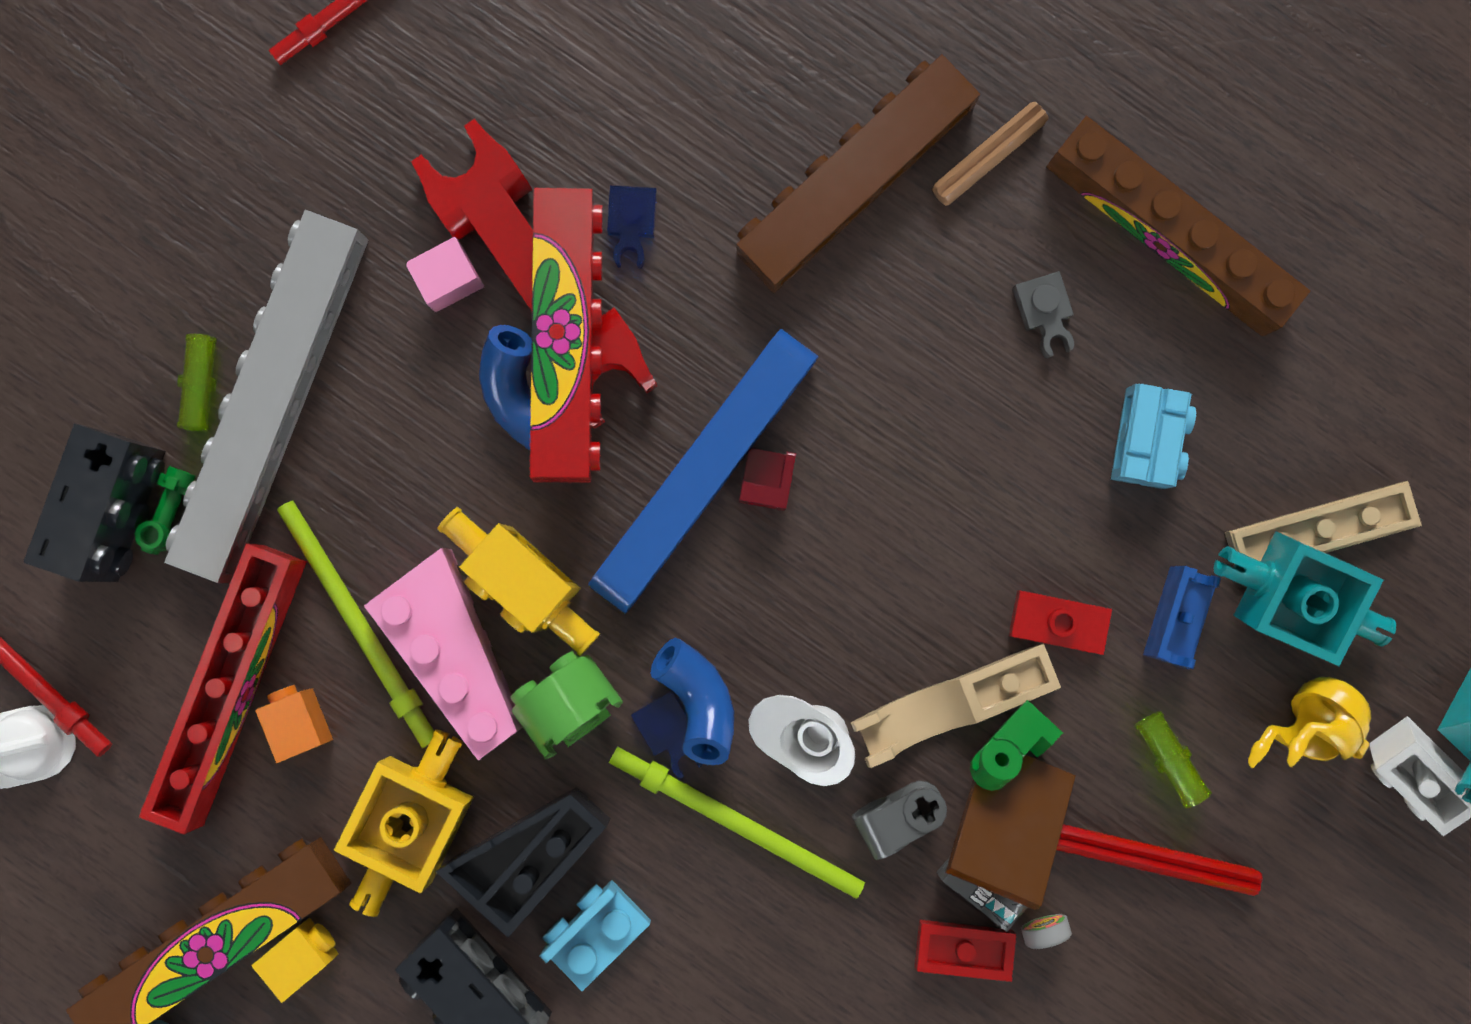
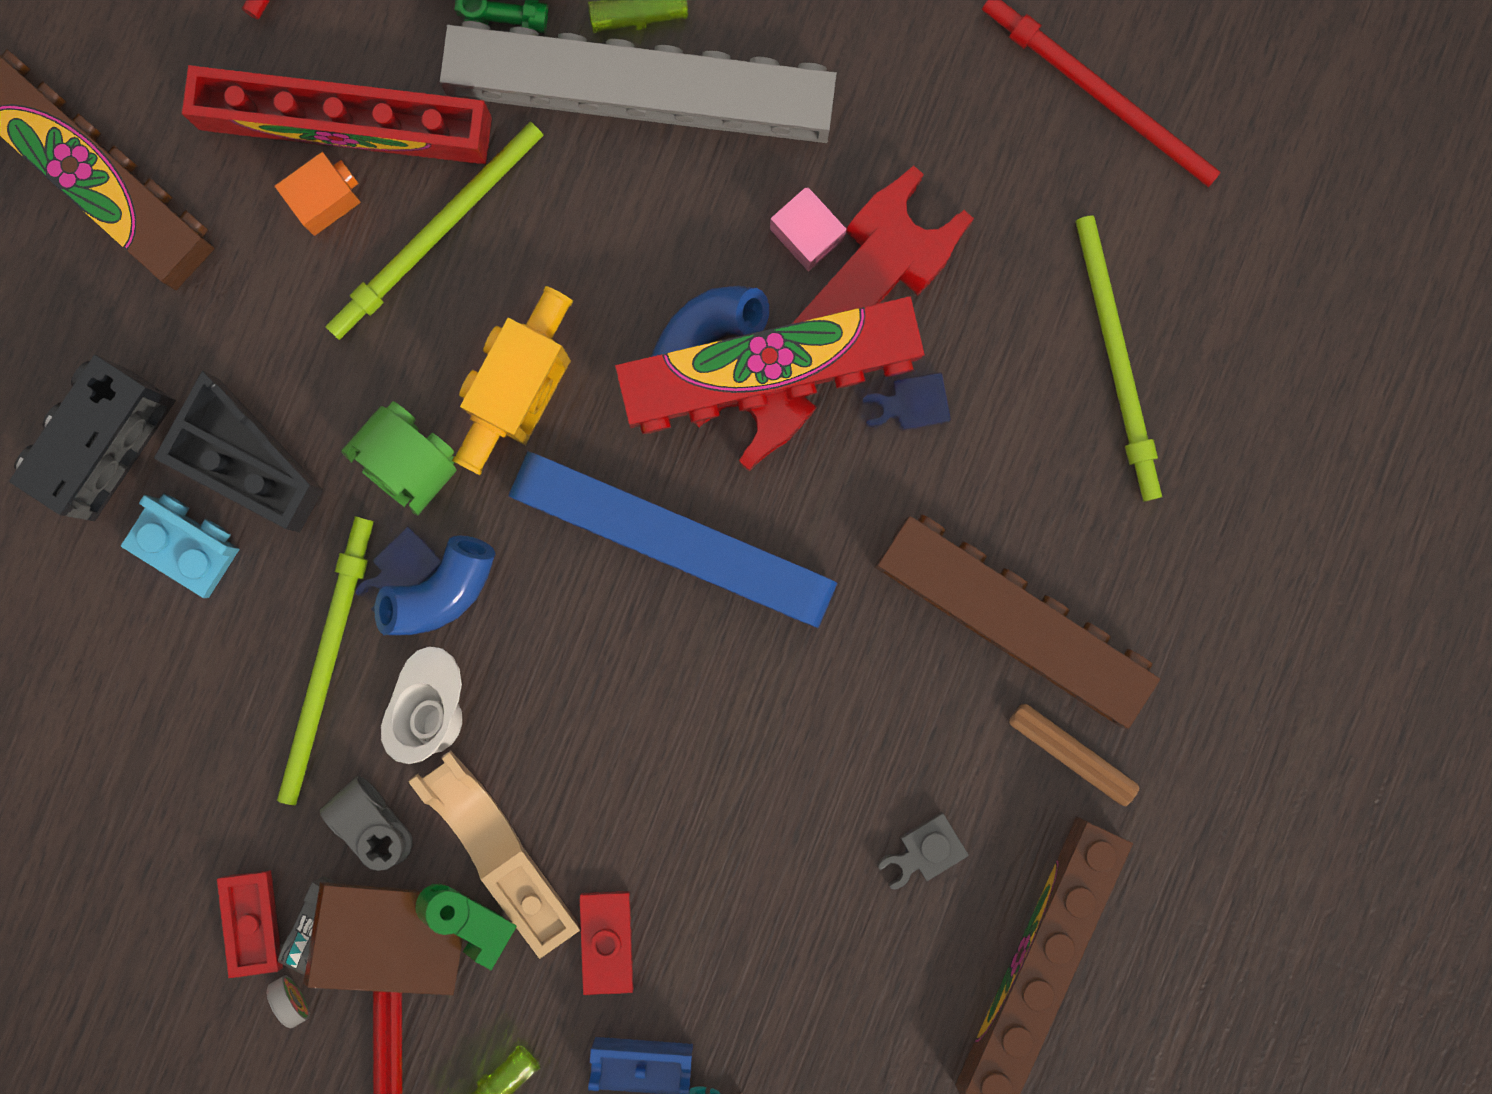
camera: 75 degrees right, 0 degrees up
(296, 959) = (87, 255): yellow brick -> none
(375, 830) = (232, 300): yellow brick -> none
(443, 643) = (427, 328): bright pink wedge -> none
(726, 23) = (1140, 451): none -> lime bar
(767, 479) = (680, 606): dark red panel -> none
(1153, 436) = (820, 993): medium azure brick -> none

